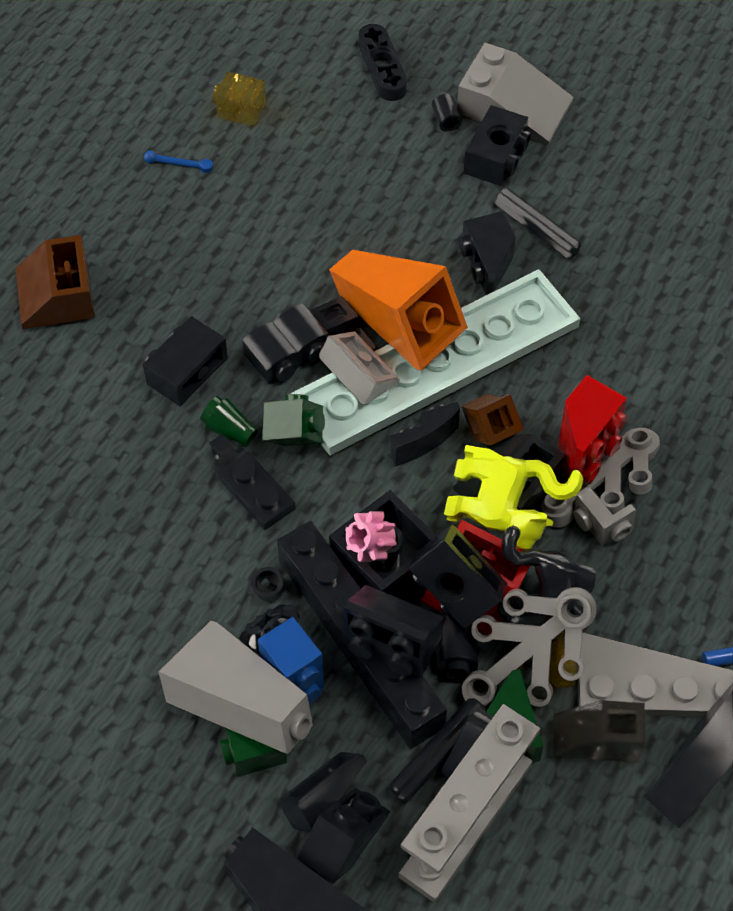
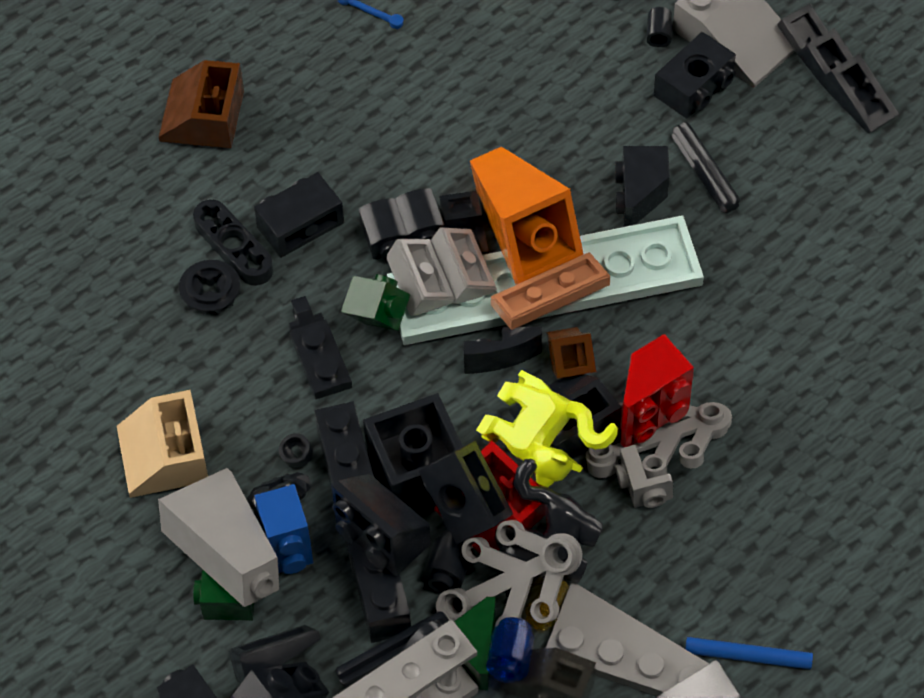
camera: 20 degrees right, 0 degrees up
(117, 439) = (209, 273): none -> black gear
(123, 390) = (232, 227): none -> black beam
(137, 617) = (162, 445): none -> tan slope
(226, 419) = (317, 284): dark green cone -> none
(324, 384) = (420, 275): none -> light grey slope
(370, 536) = (396, 431): bright pink gear -> none
(451, 367) = (550, 290): none -> nougat tile
(557, 716) = (510, 650): none -> clear blue brick
(623, 115) = (836, 69): none -> black slope

